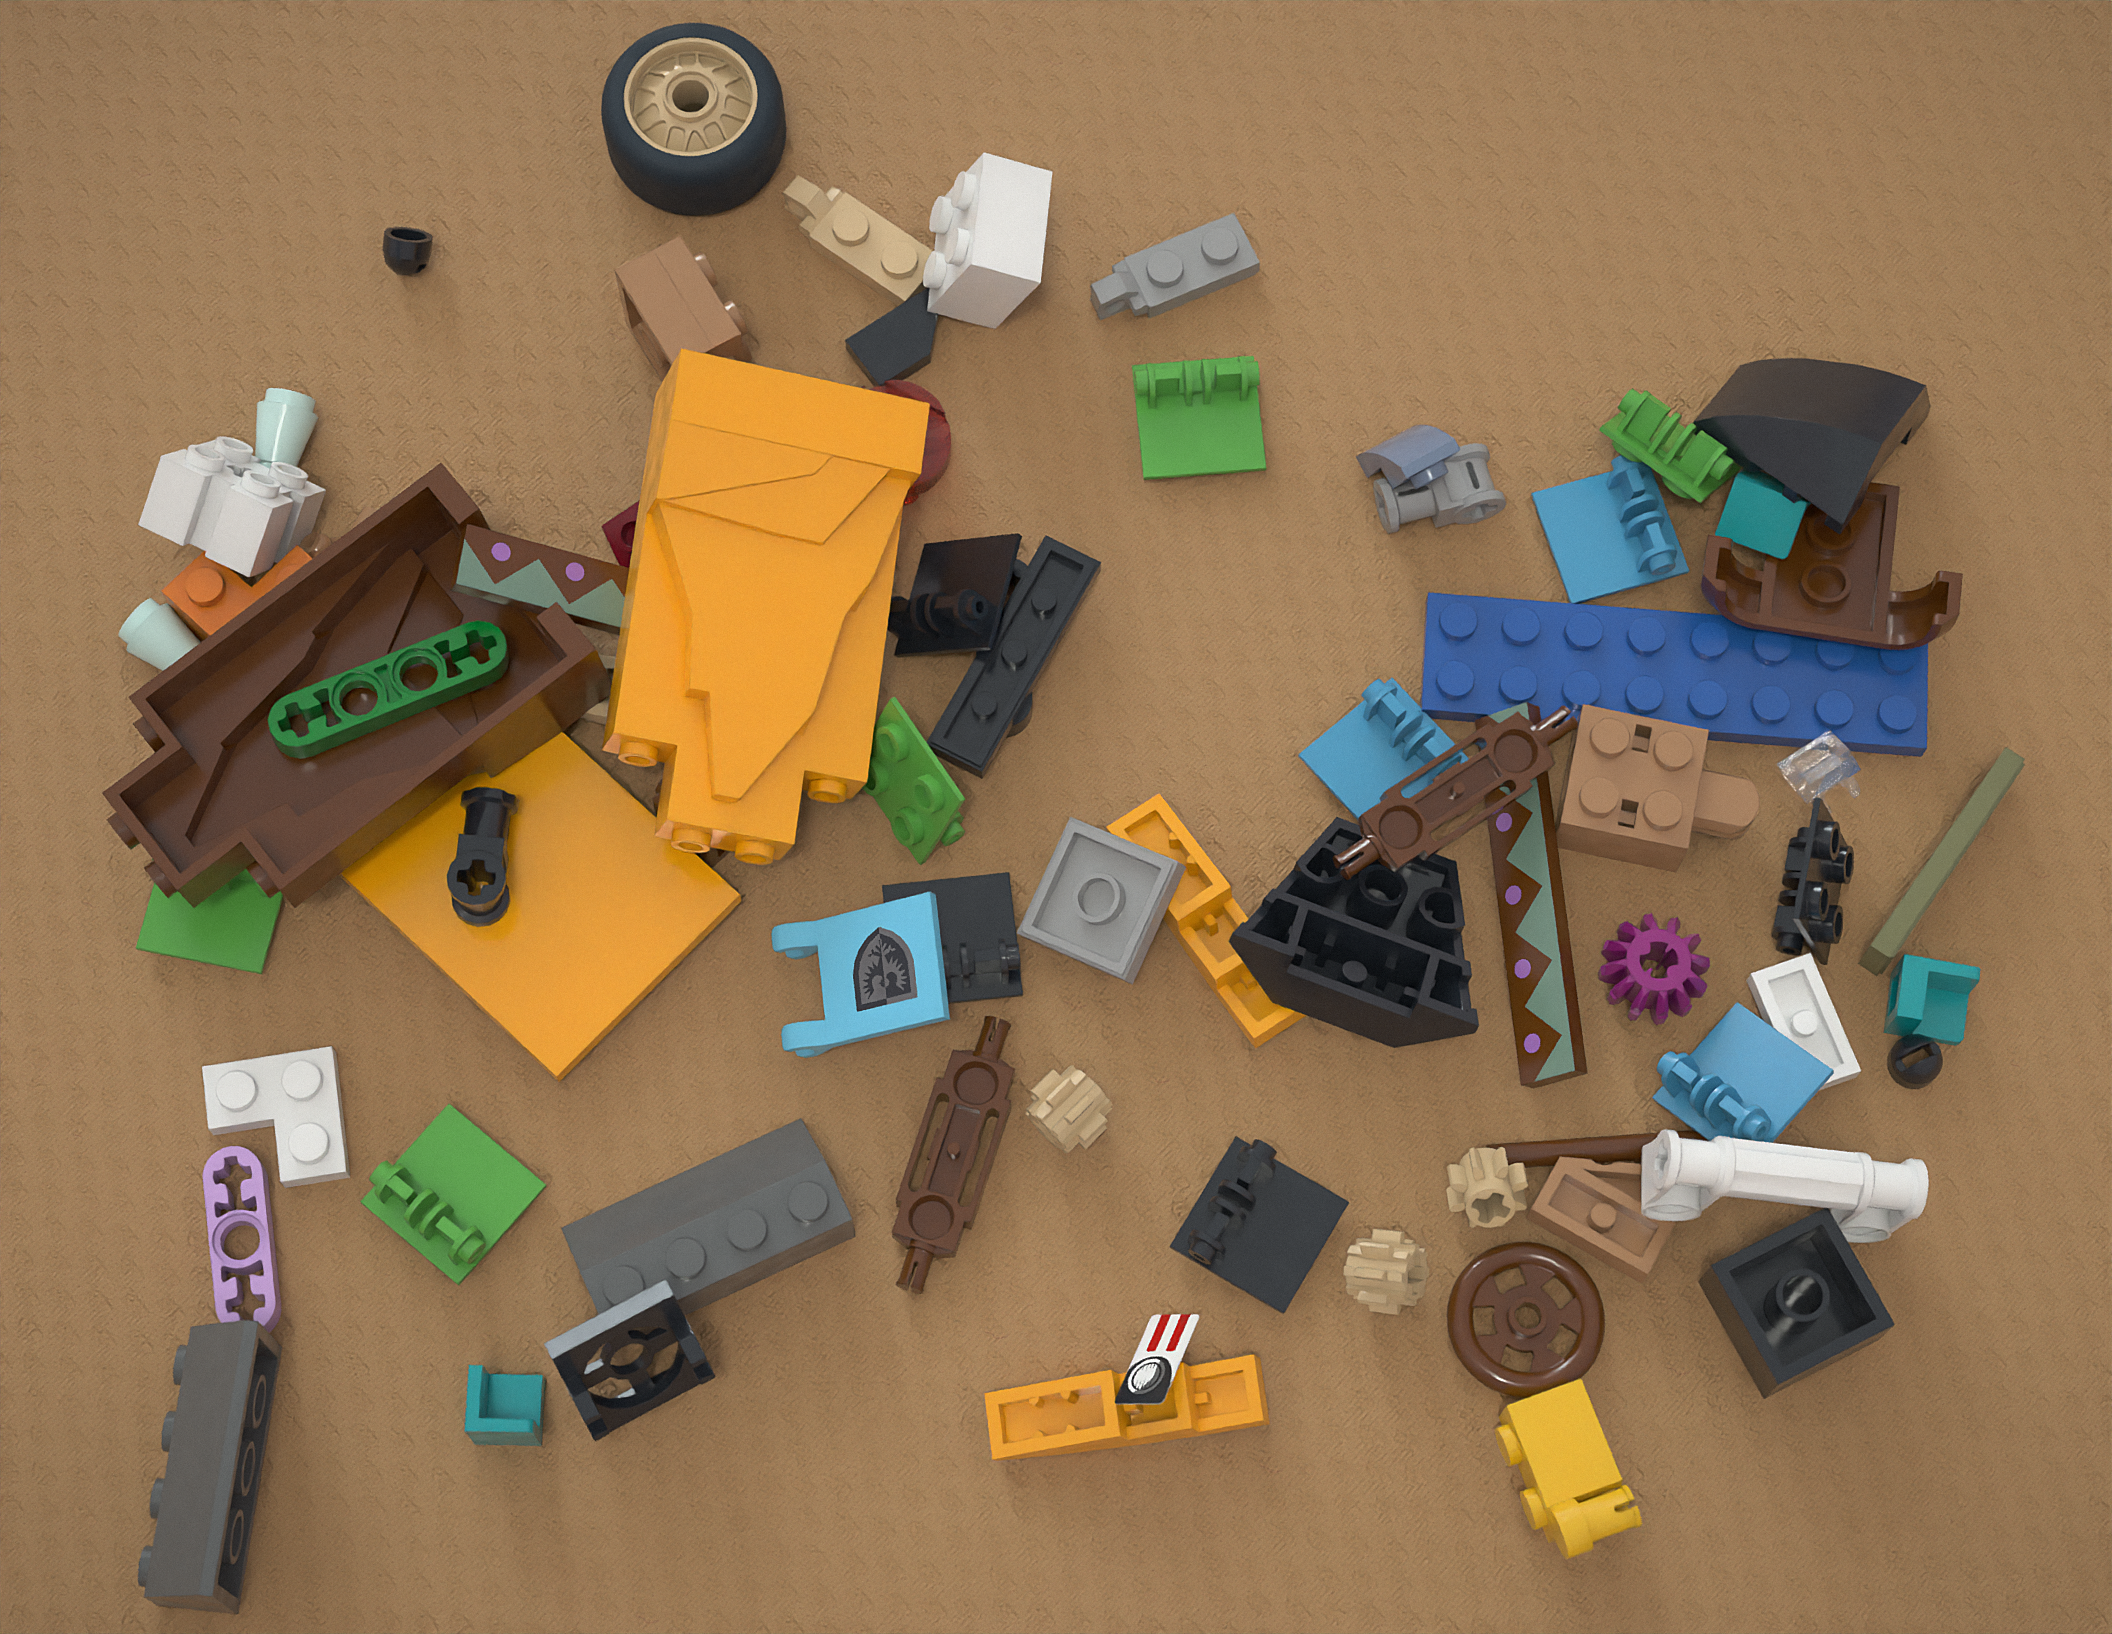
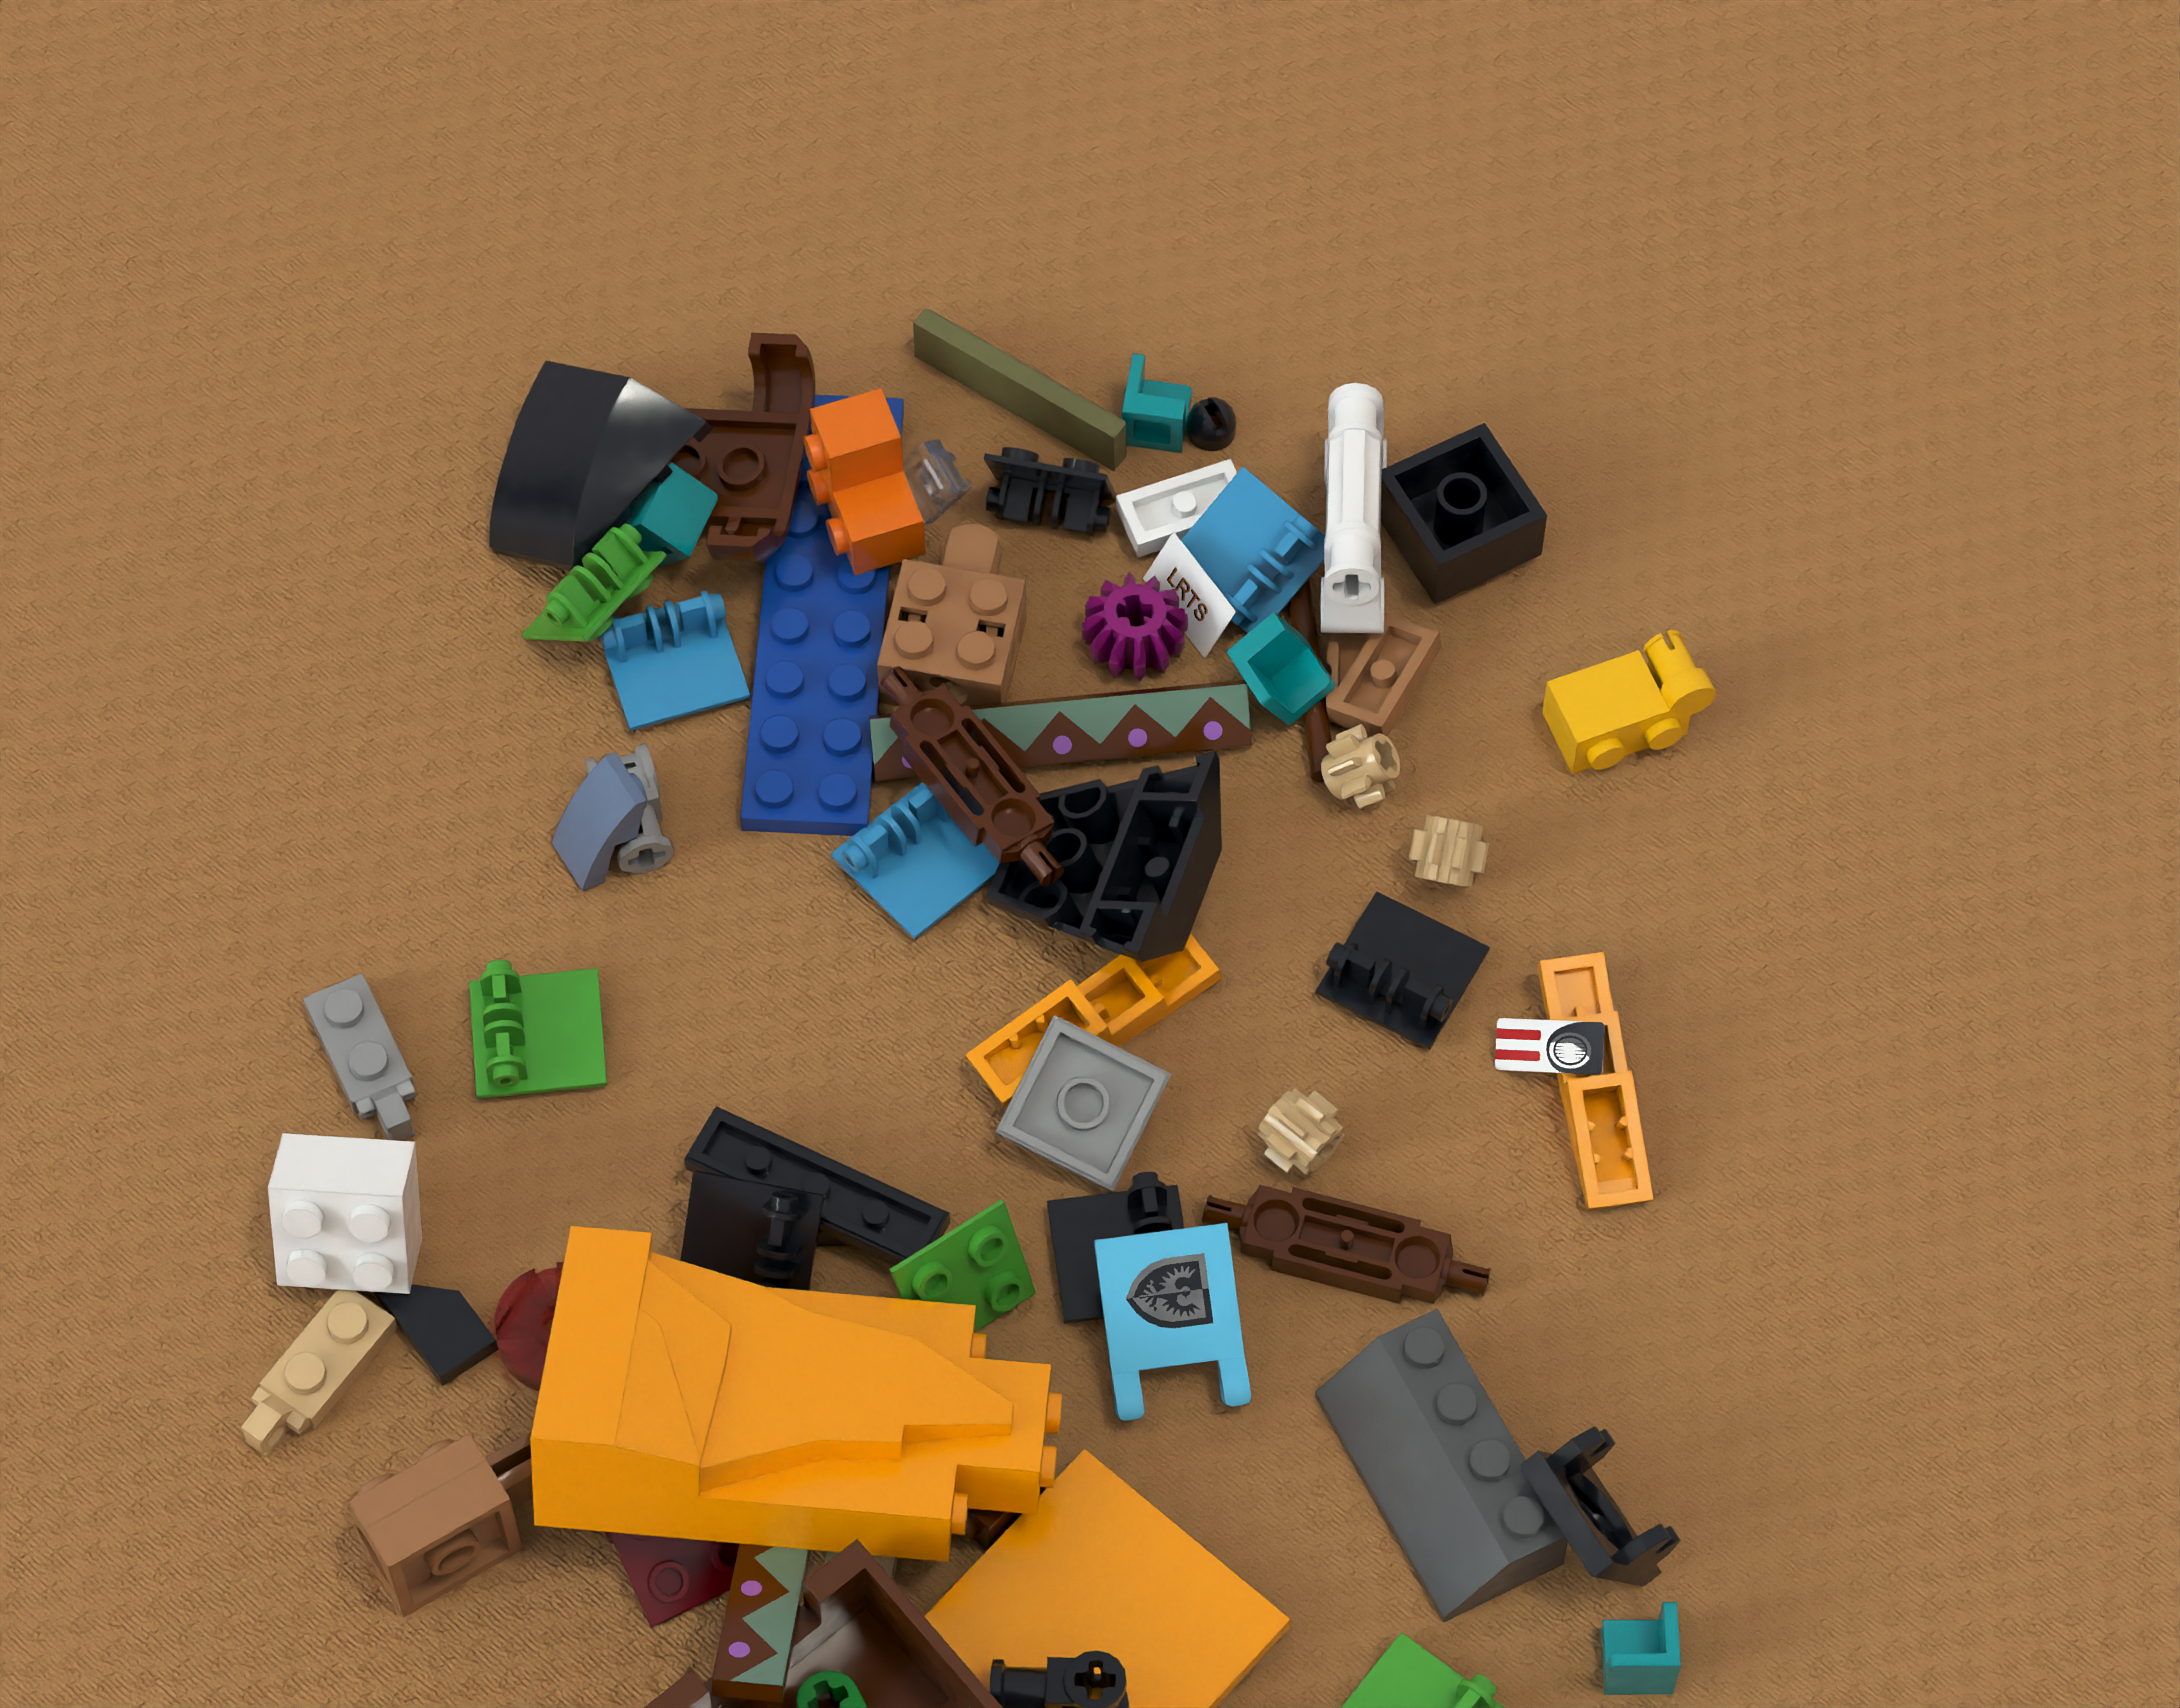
camera: 90 degrees left, 10 degrees down
(694, 119) = (179, 1579): wheel -> none
(1484, 1353) = (1454, 784): reddish brown plate -> none
(1598, 1109) = (1281, 669): none -> teal panel
(1694, 1025) = (1199, 596): none -> white sticker
(1793, 696) = (863, 482): none -> orange brick

